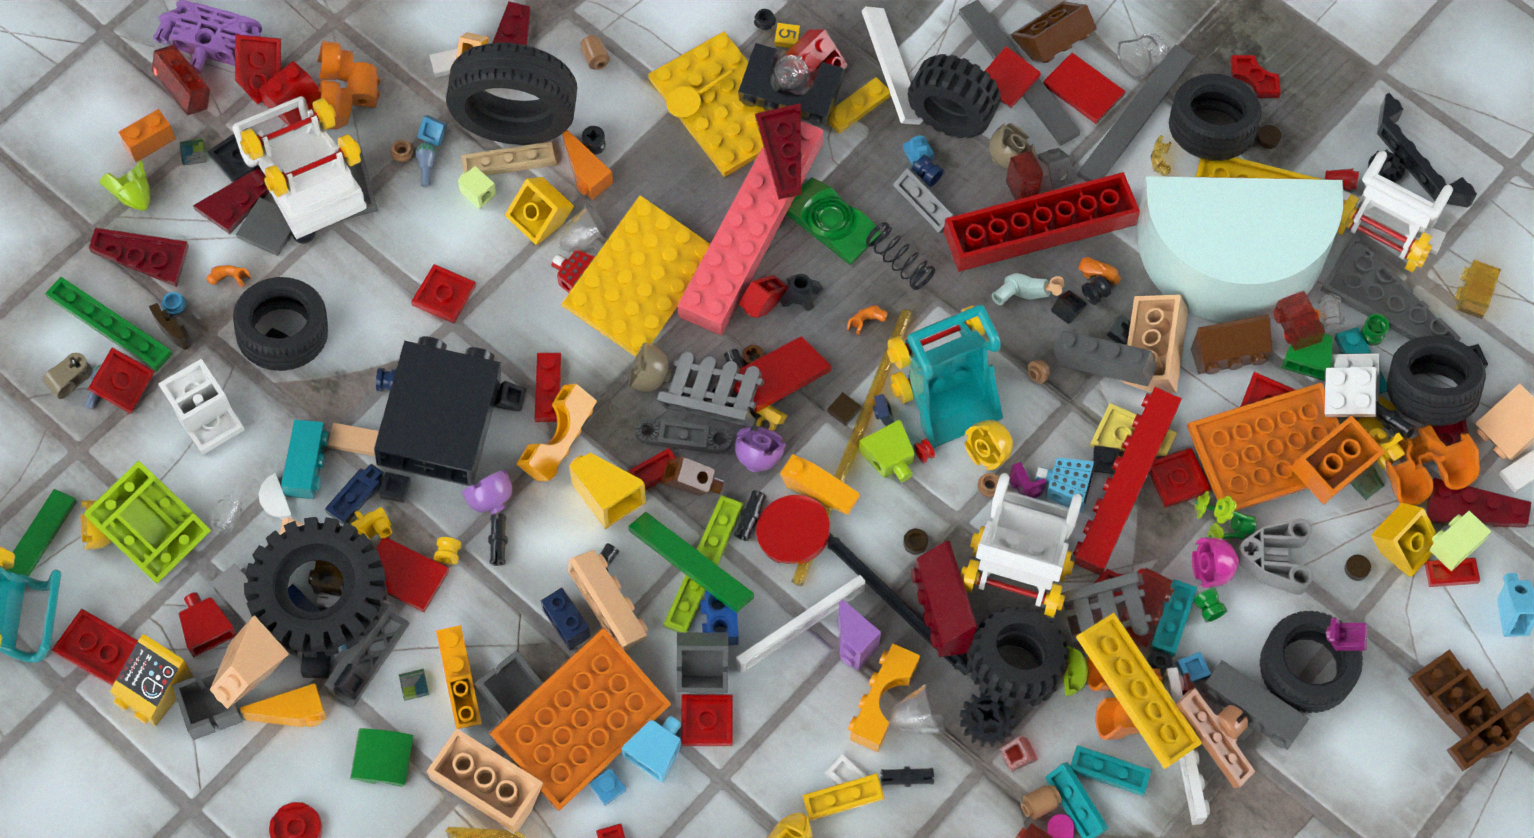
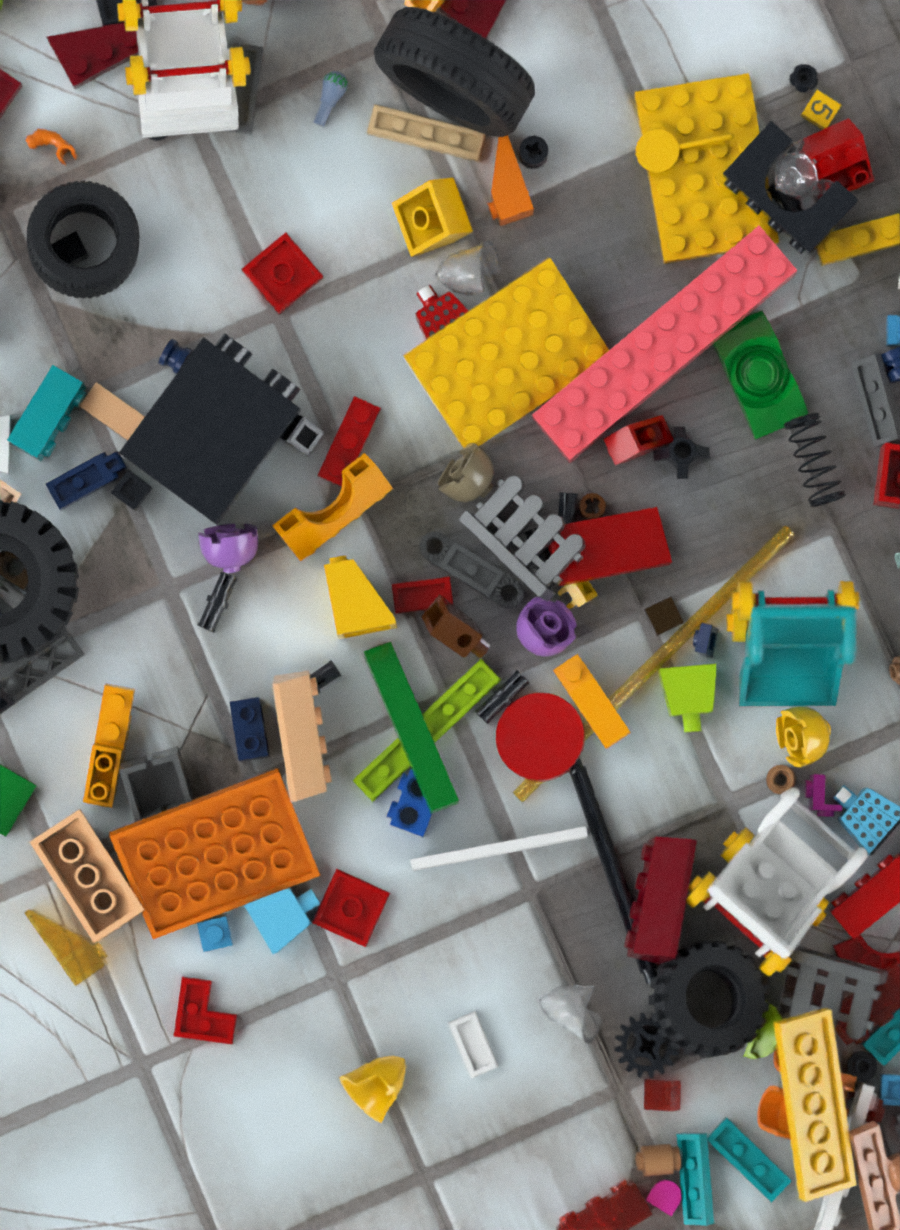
camera: 25 degrees right, 20 degrees up
(265, 227) = (114, 102): dark grey tile -> none
(373, 523) = (84, 523): yellow hips -> none
(402, 145) = (309, 60): medium nougat plate -> none
(410, 575) = (106, 598): red tile -> none
(413, 684) = (61, 727): clear green tile -> none
(432, 130) = (354, 58): dark azure plate -> none
(447, 550) = (157, 592): yellow wheel -> none
(476, 187) = (373, 155): yellowish green brick -> none
(594, 52) = (584, 36): medium nougat brick -> none
(702, 662) = (370, 850): dark grey piece -> none
(782, 146) = (738, 272): dark red wing -> none
(843, 797) = (454, 1060): yellow tile -> none
(856, 636) = (546, 894): medium lavender slope -> none
(871, 312) = (750, 513): orange piece -> none
(896, 670) = (577, 945): light orange arch -> none
(907, 776) = (531, 1067): black pin -> none
(915, 541) = (668, 807): dark brown tile -> none
(924, 450) = (727, 708): red bush -> none

